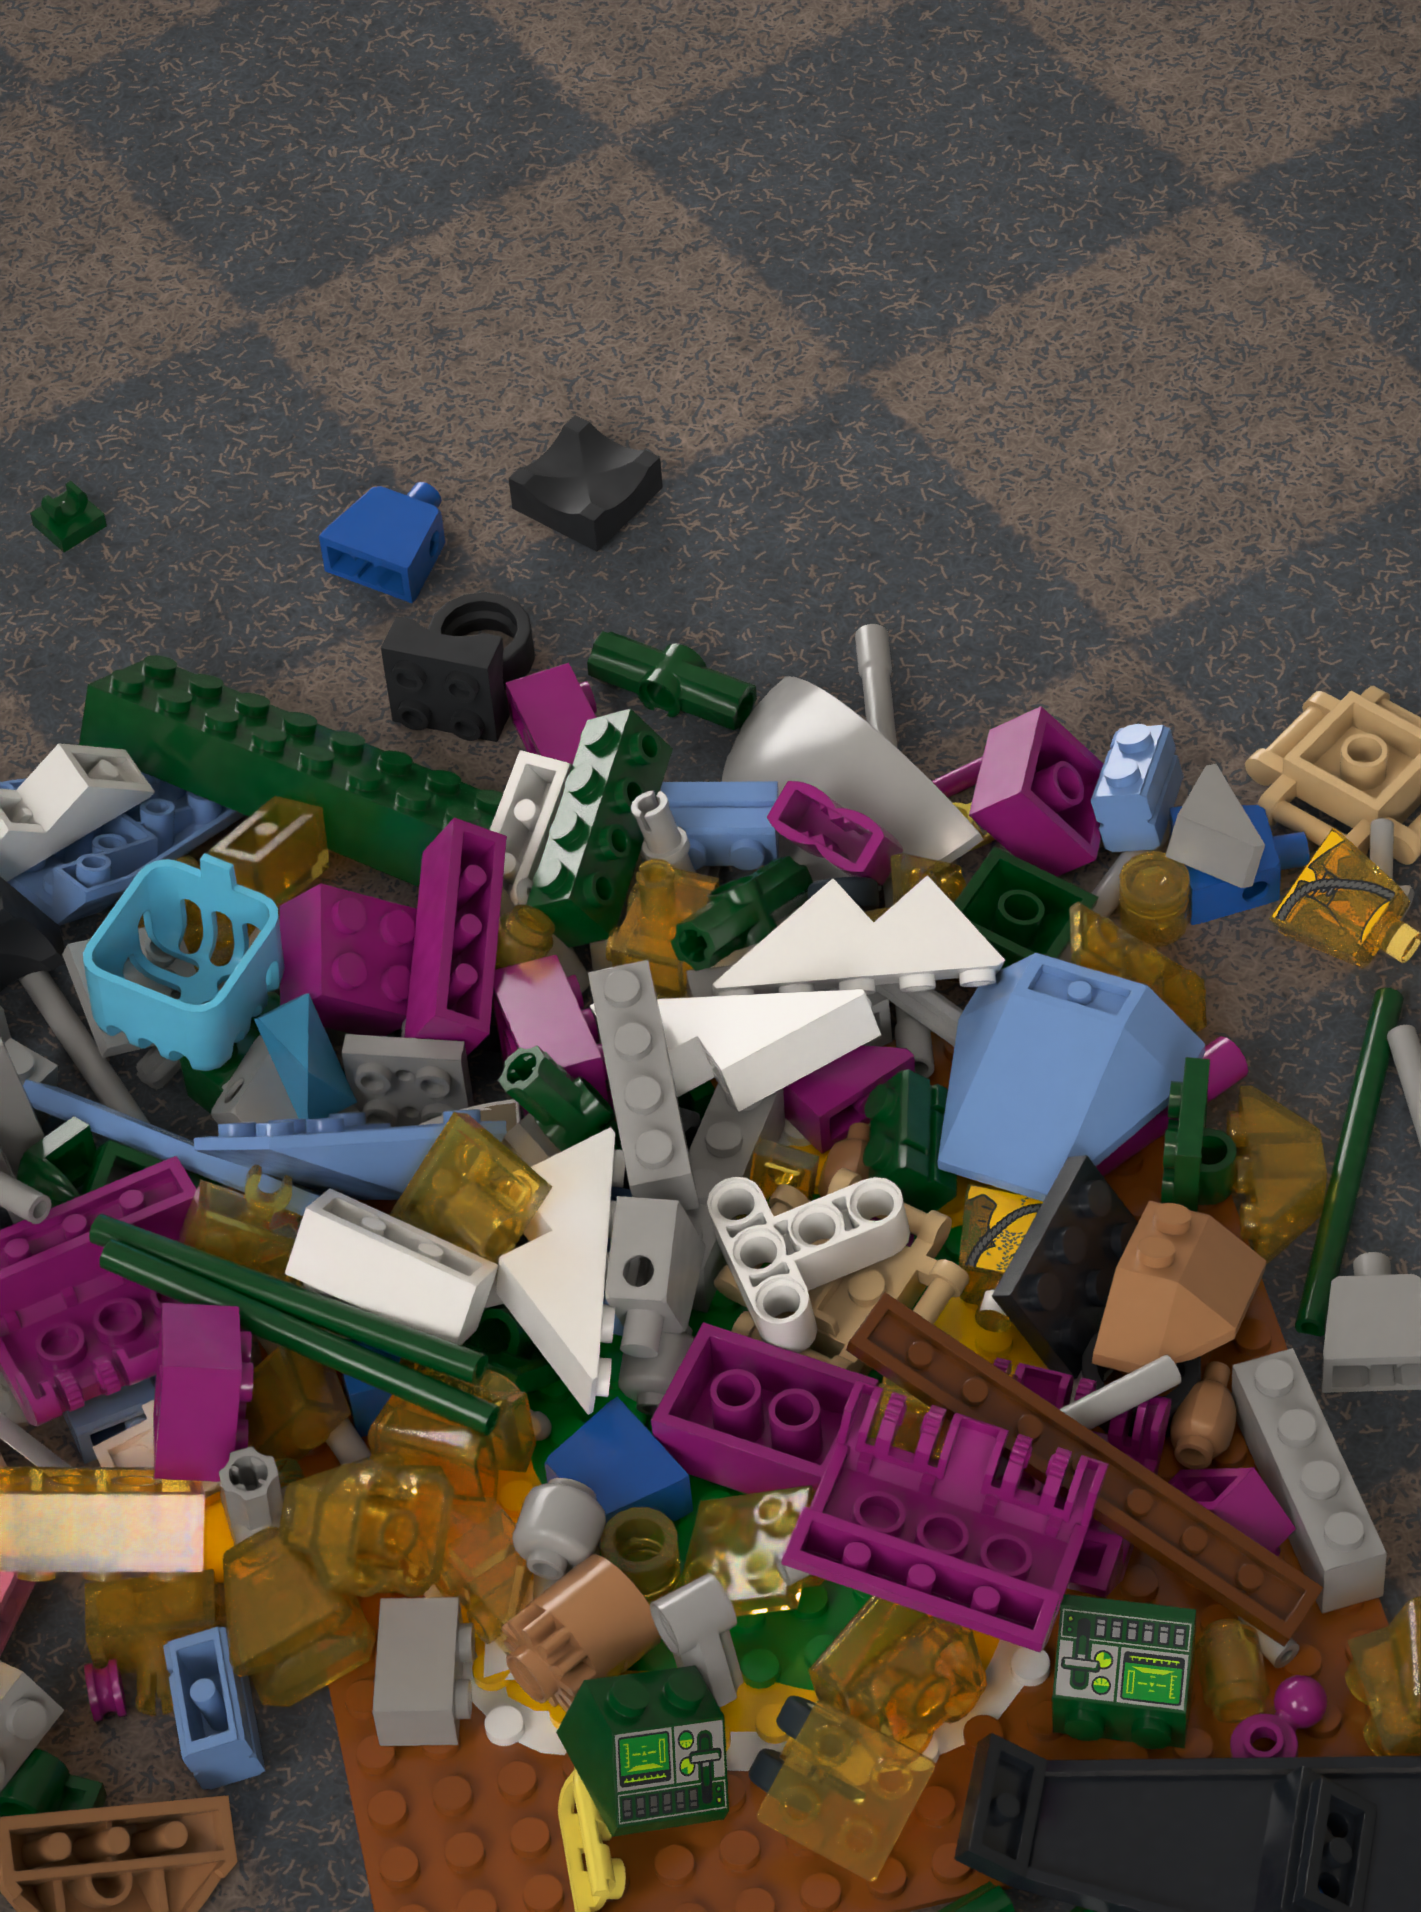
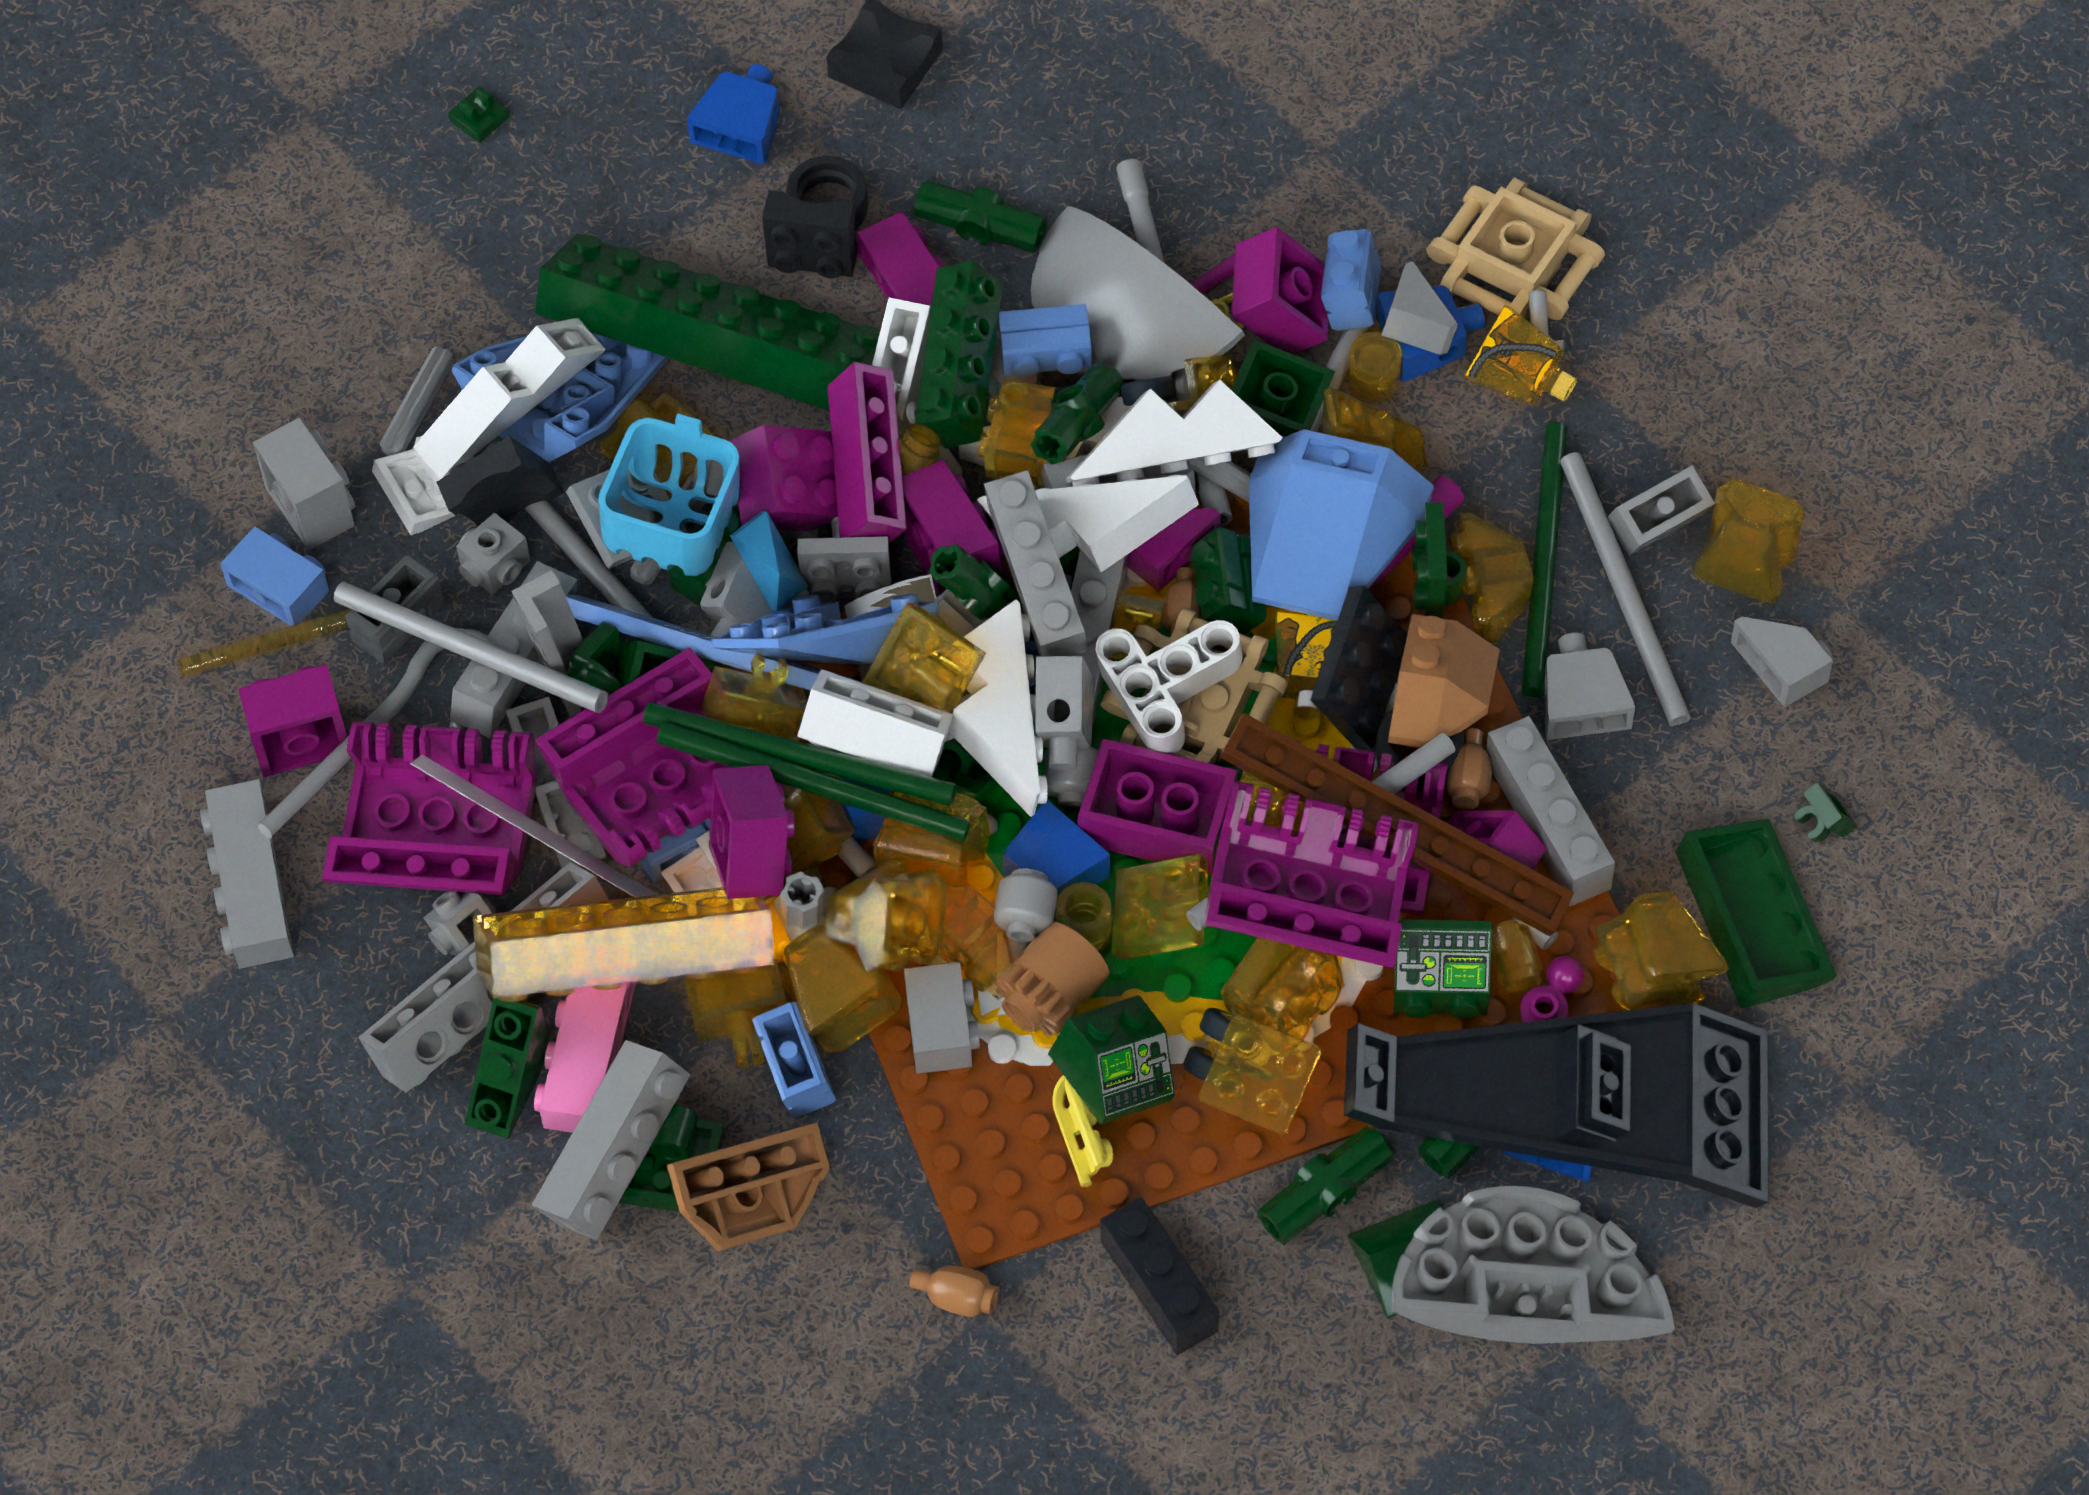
camera: 10 degrees left, 10 degrees up
(105, 1690) = (709, 1053): magenta bush -> none
(277, 849) = (709, 390): clear yellow brick -> none
(660, 833) = (1010, 361): light grey pin -> none
(696, 1630) = (1137, 970): light grey piece -> none
(833, 832) = (1141, 345): magenta brick -> none

